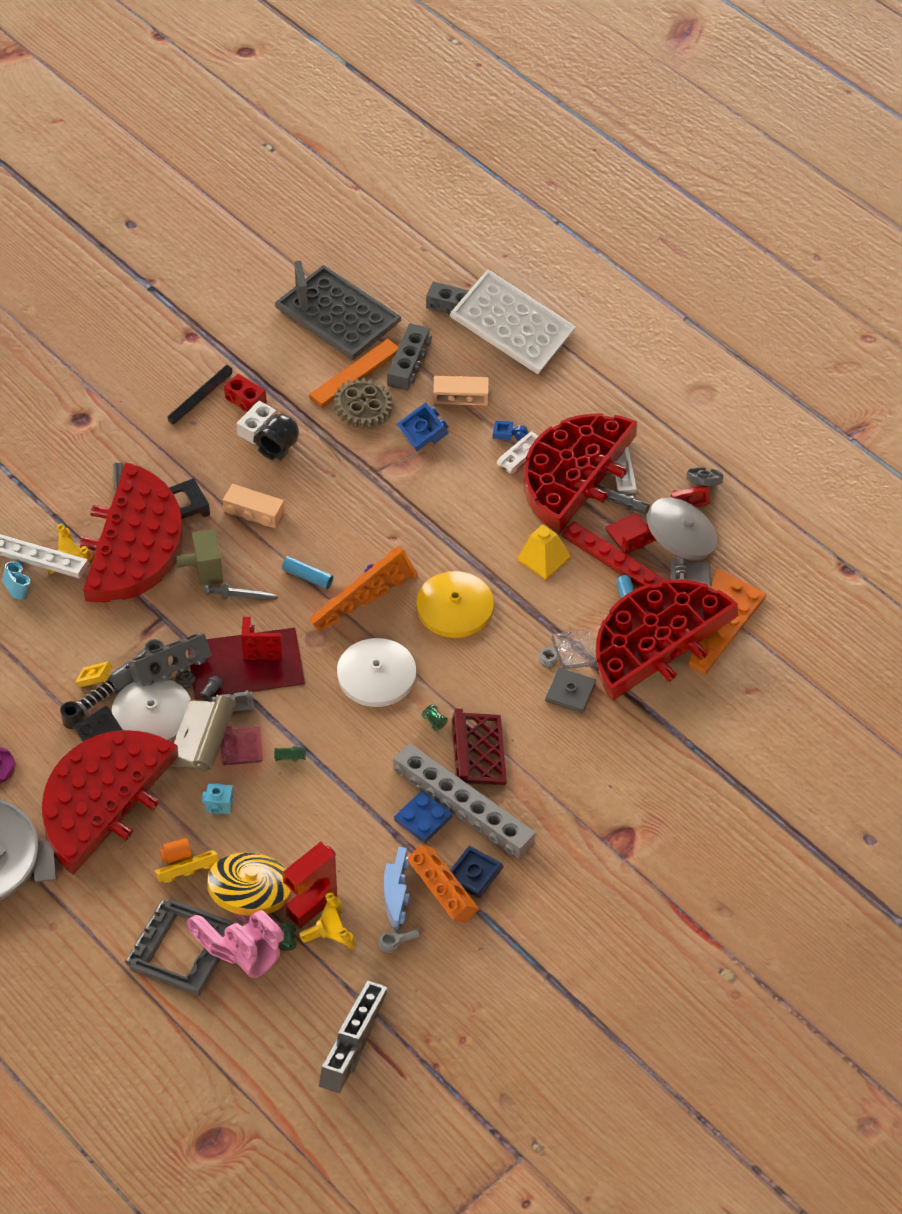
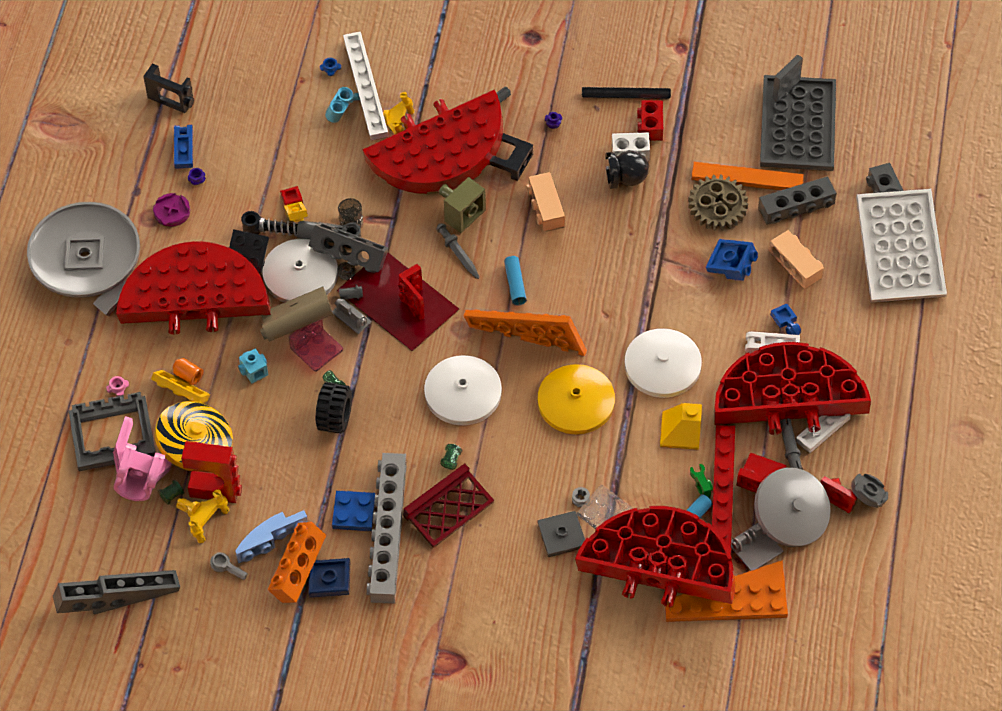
camera: 55 degrees right, 5 degrees up
(69, 672) = (291, 195): none -> red tile
(134, 637) = (350, 212): none -> clear smoke wheel
(134, 910) = (117, 381): none -> bright pink plate
(177, 454) = (553, 120): none -> dark purple plate
(320, 764) = (333, 407): none -> black tyre
(473, 530) = (663, 363): none -> white dish
(607, 572) = (702, 484): none -> green plate

